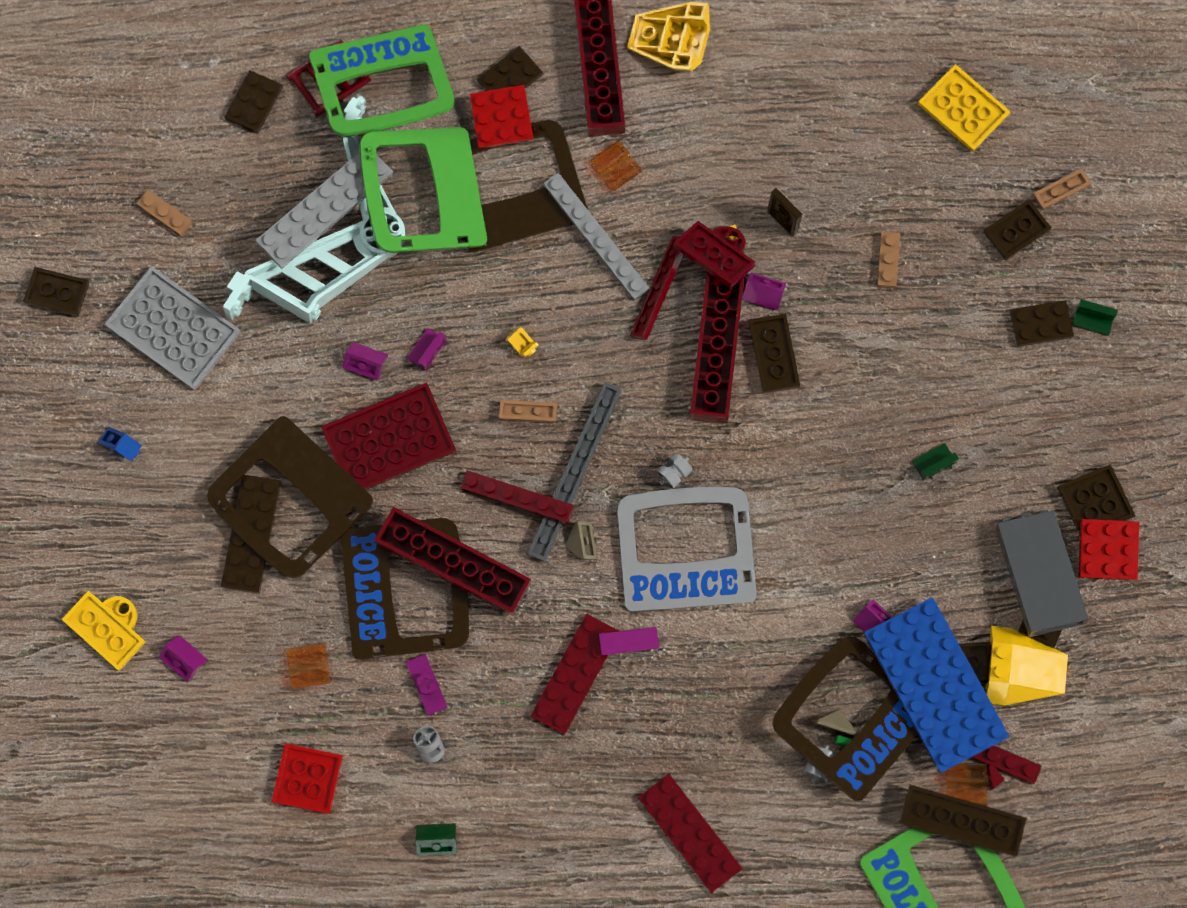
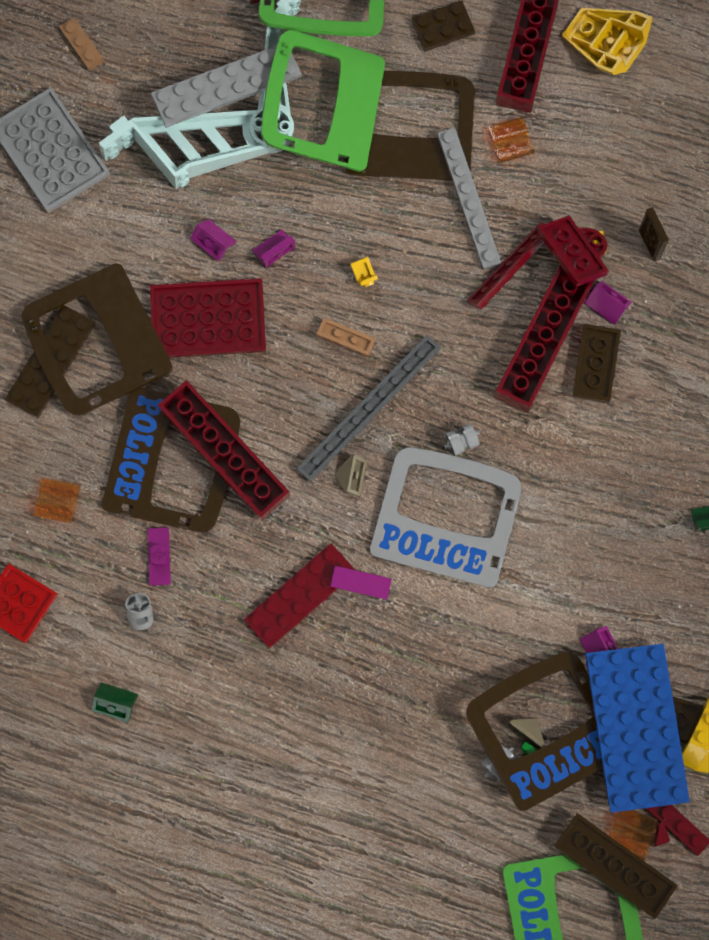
camera: 20 degrees right, 0 degrees up
(501, 116) = (421, 59): red plate -> none
(517, 497) = (306, 412): dark red plate -> none
(690, 833) = (352, 783): dark red plate -> none

